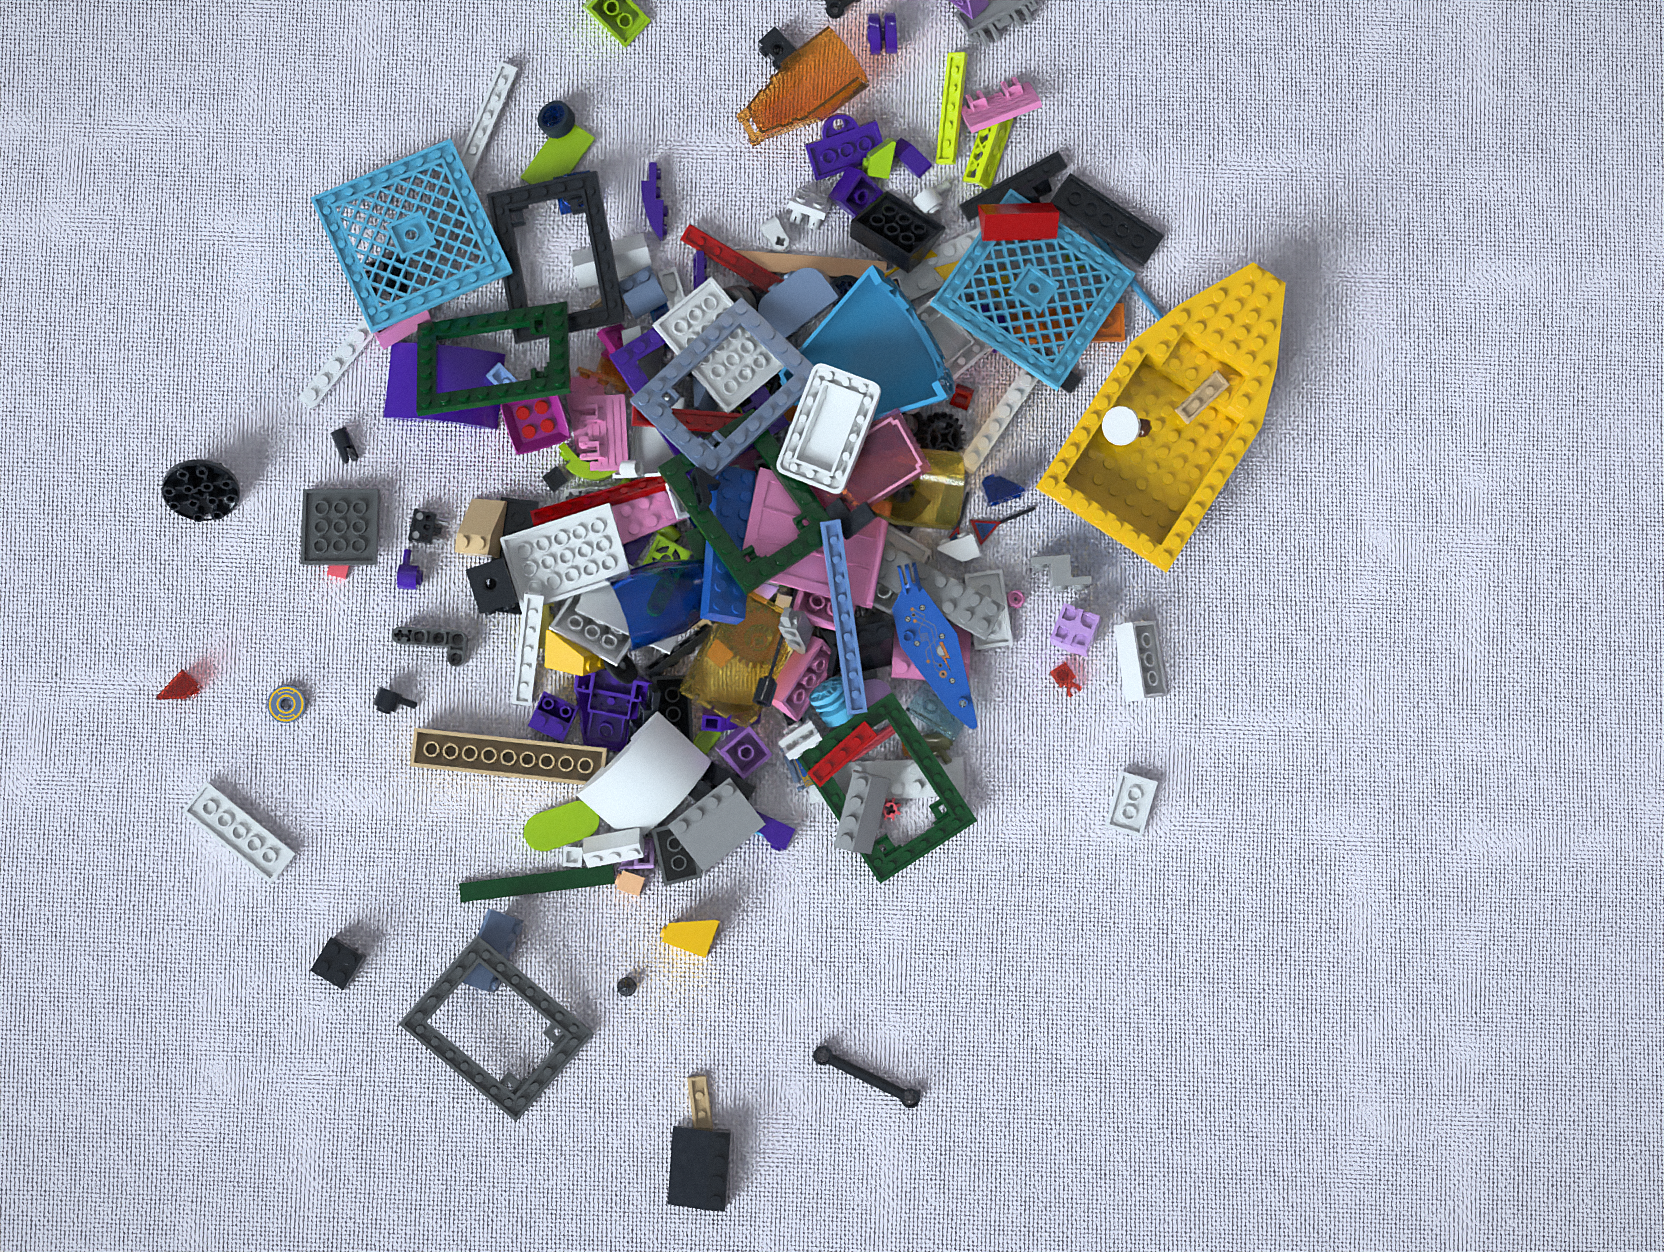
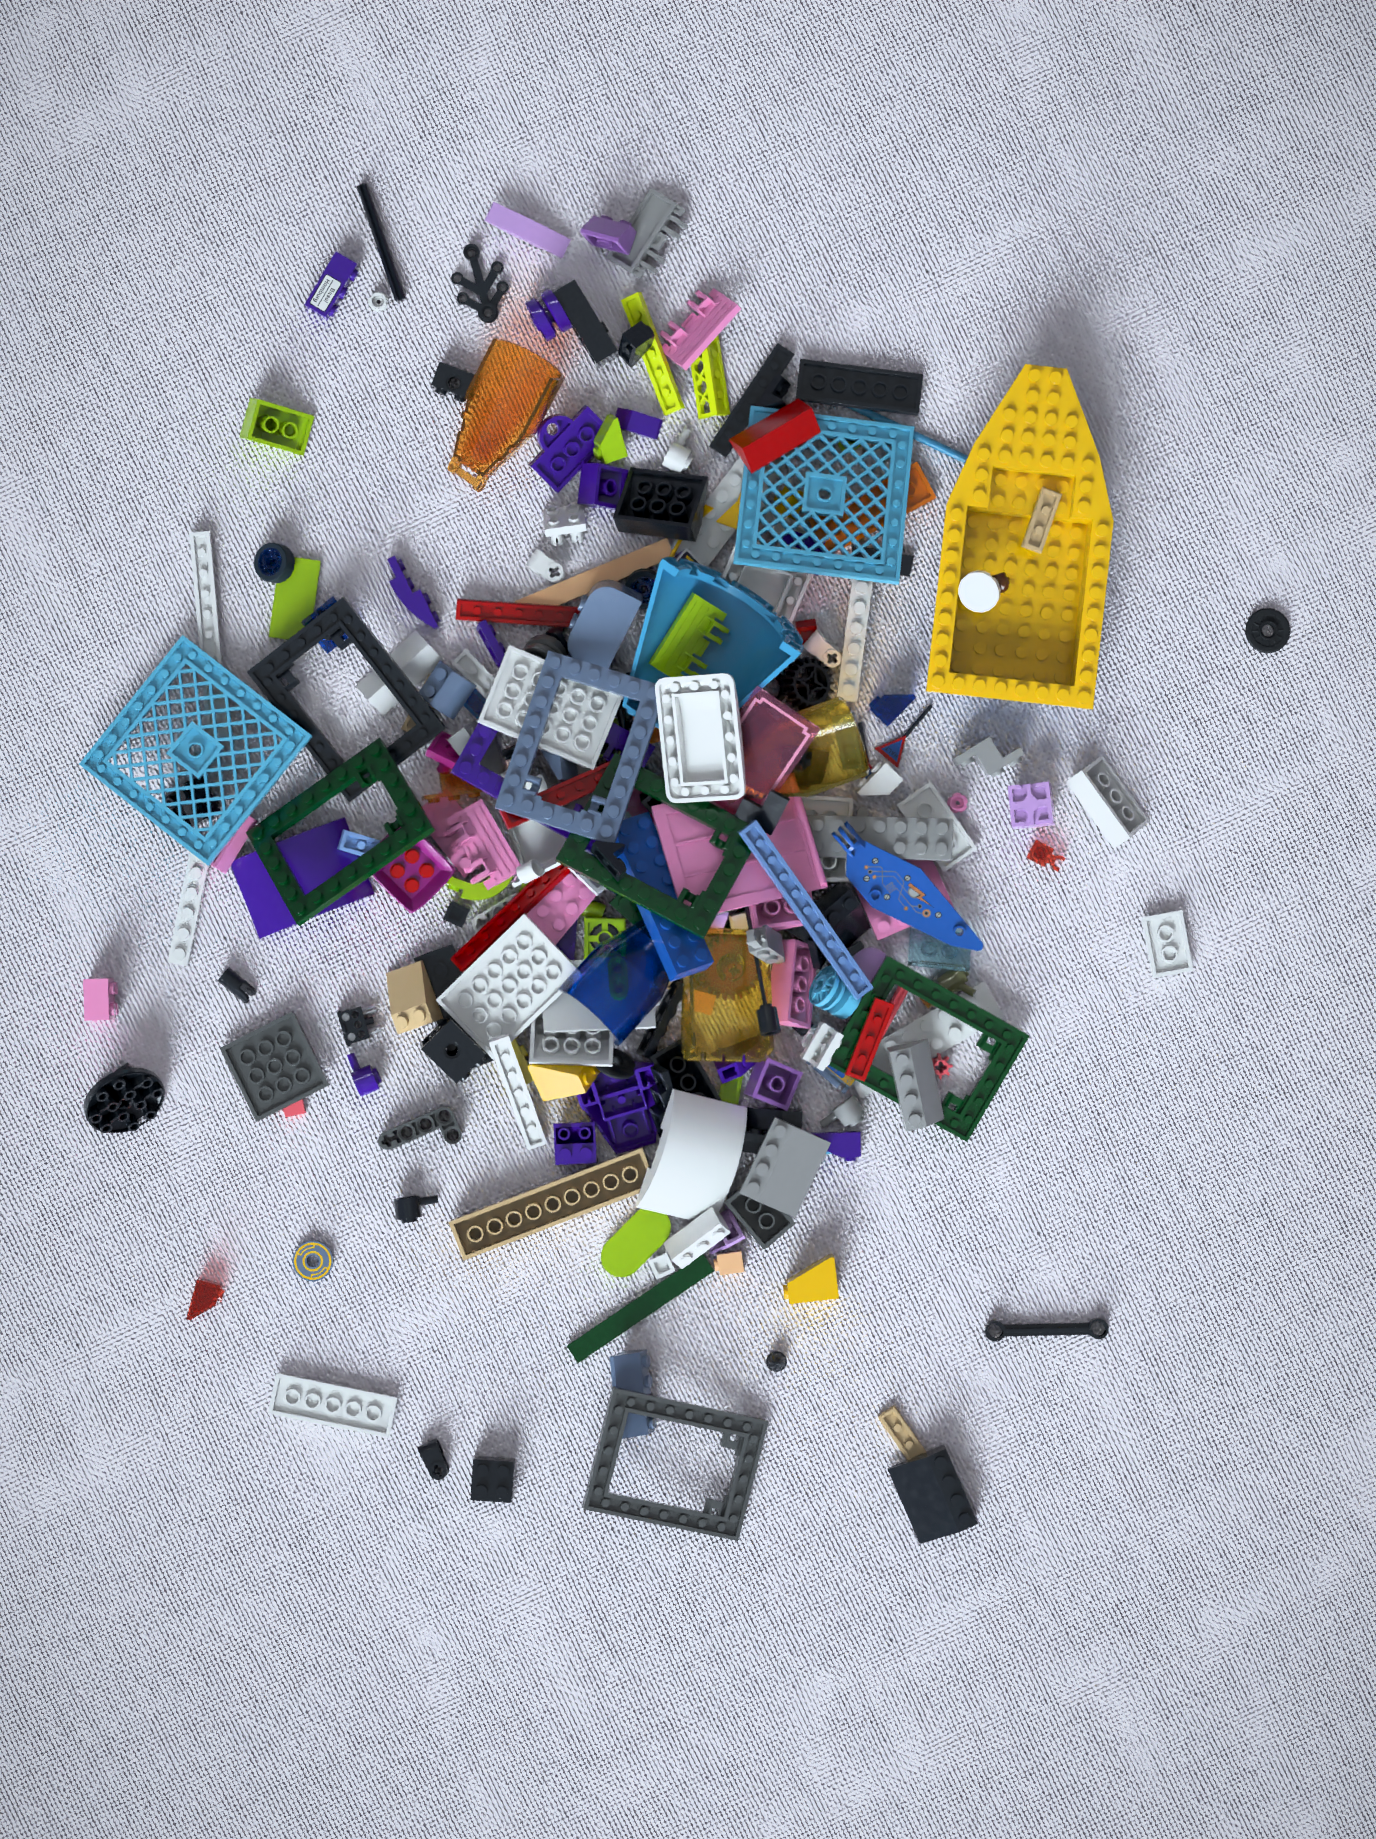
camera: 25 degrees left, 5 degrees up
(226, 398) = (100, 999): none -> bright pink brick
(299, 918) = (433, 1455): none -> black piece
(793, 808) = (848, 1113): none -> light grey piece
(861, 344) = (687, 636): none -> lime hinge
(909, 56) = (586, 324): none -> black brick
(942, 91) = (635, 343): none -> black slope
(966, 412) = (821, 647): none -> white piece
(1335, 596) = (1280, 627): none -> black wheel

